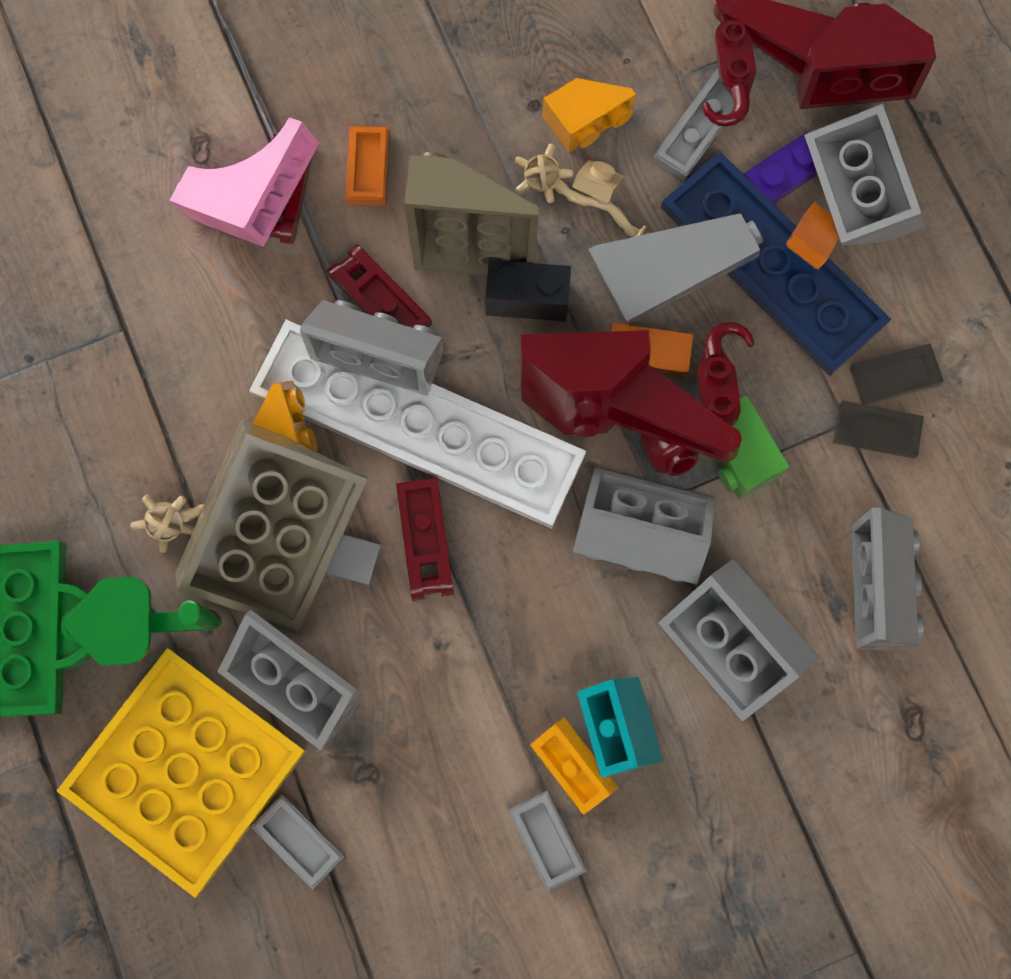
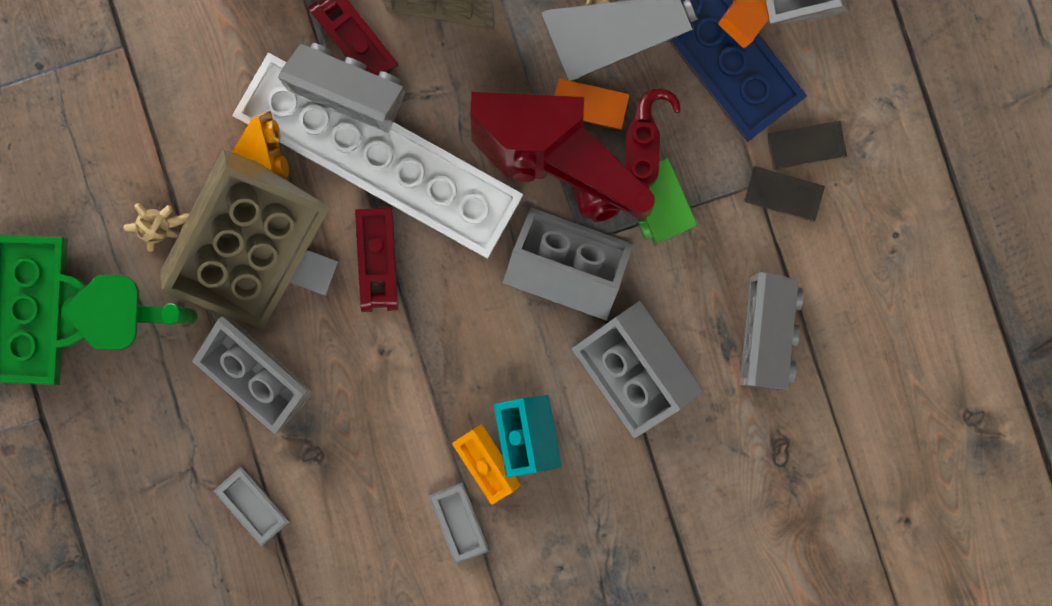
camera: 10 degrees right, 10 degrees up
(181, 772) = (158, 440): yellow plate -> none
(527, 290) = (485, 43): black brick -> none

